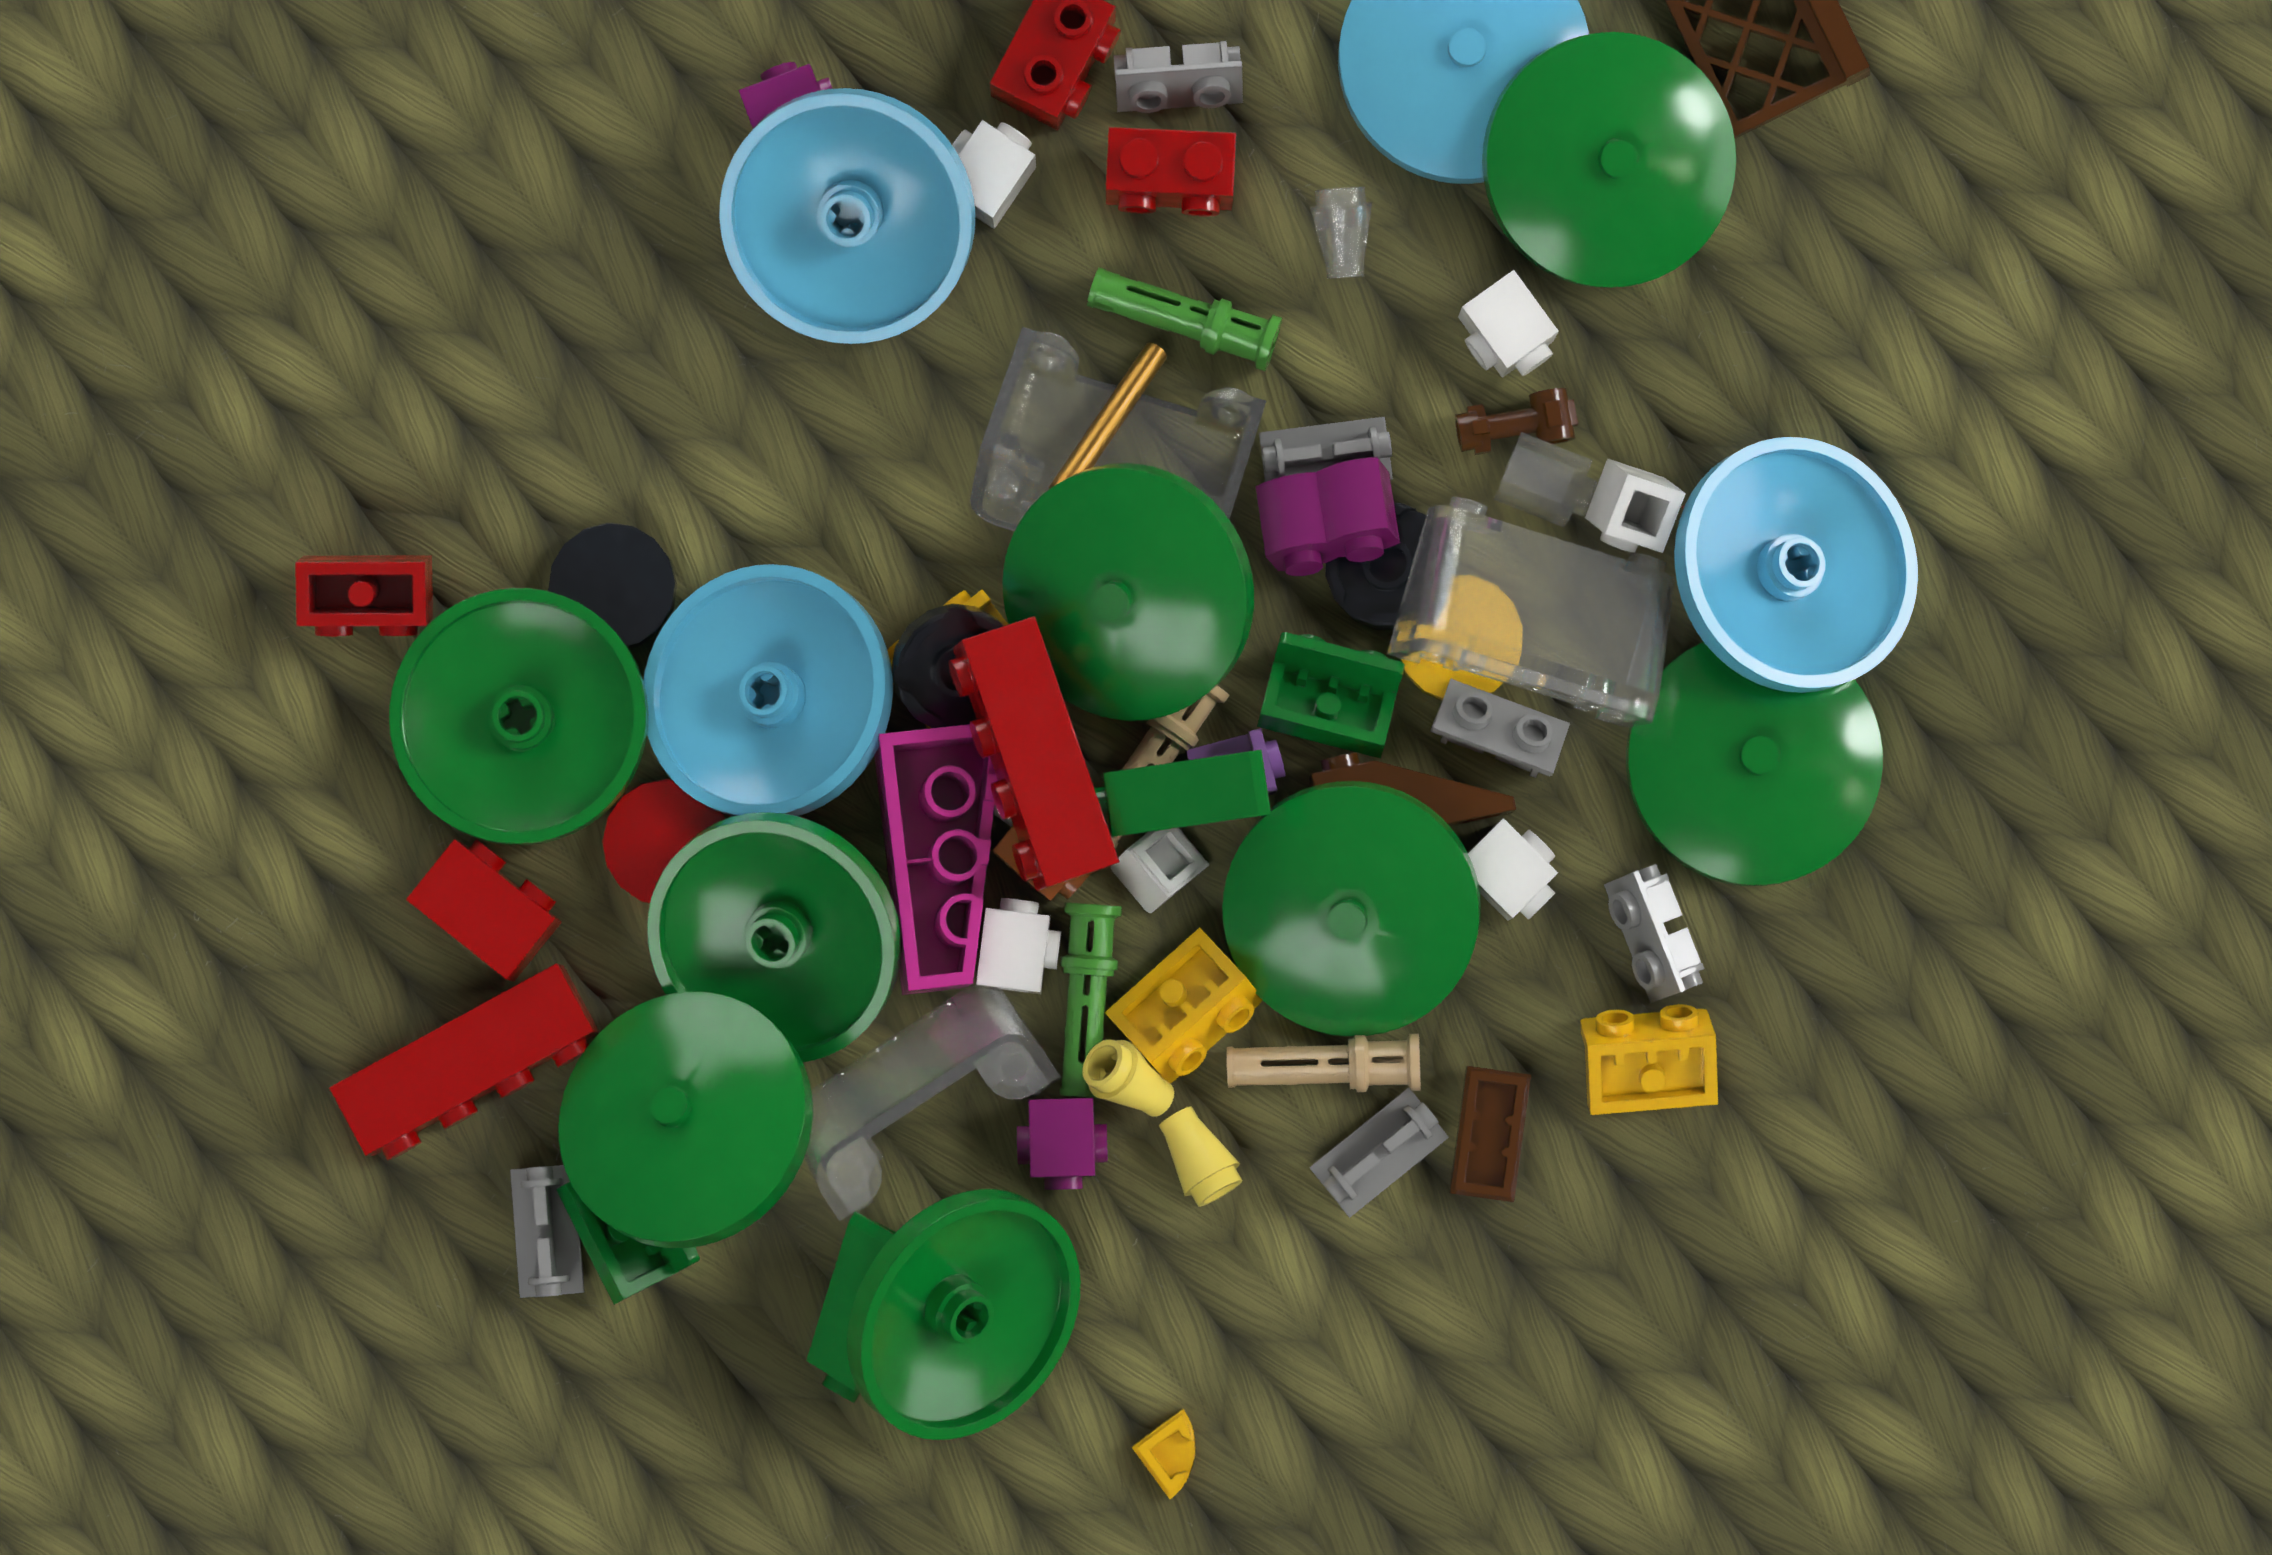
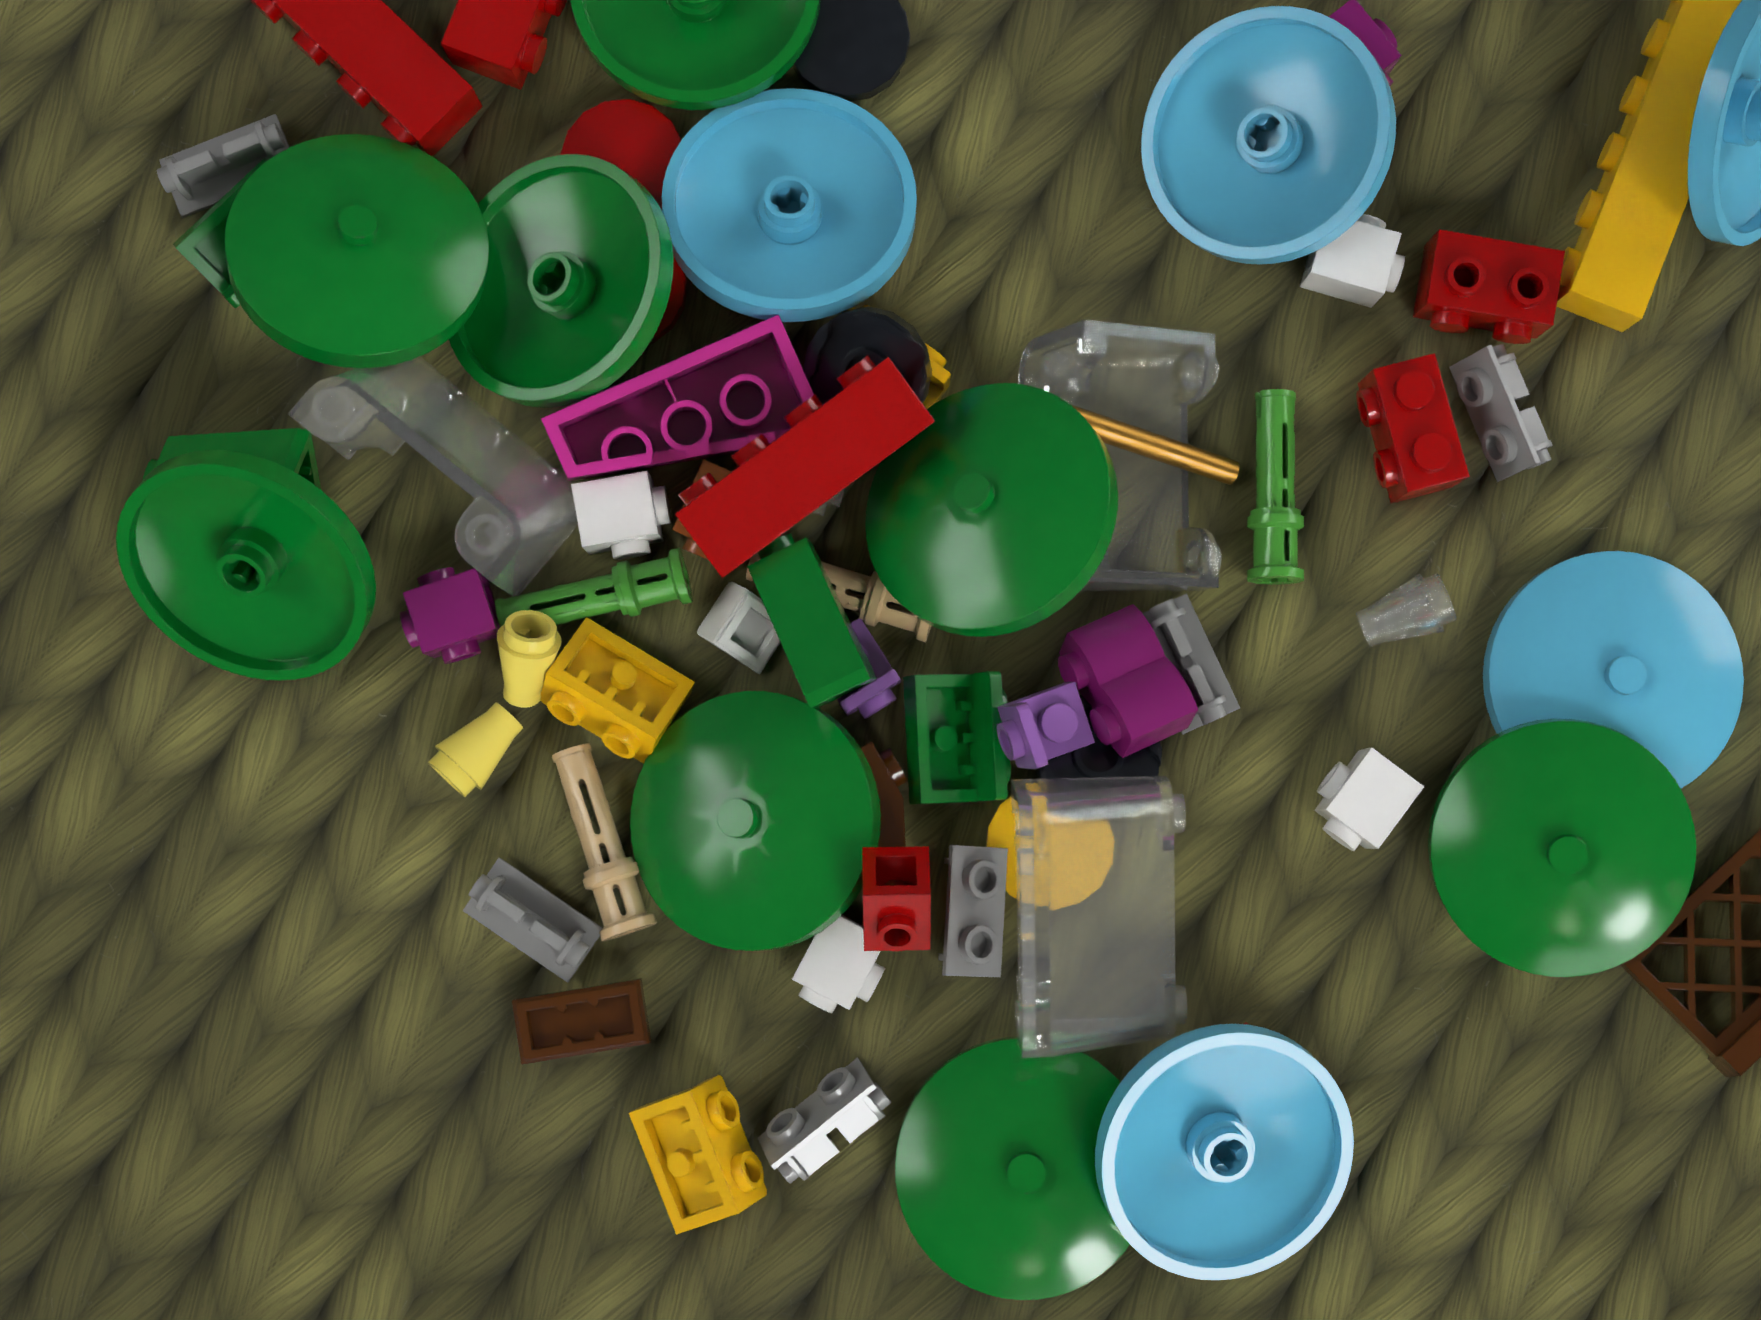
camera: 75 degrees right, 0 degrees up
(1169, 1452) = (190, 807): yellow tile -> none
(1347, 606) = (1043, 726): none -> medium lavender bracket
(1469, 792) = (896, 898): none -> red brick
(1546, 481) = (1228, 882): clear brick -> none
(1549, 417) = (1291, 866): reddish brown bar -> none
(1634, 507) = (1229, 976): white brick -> none

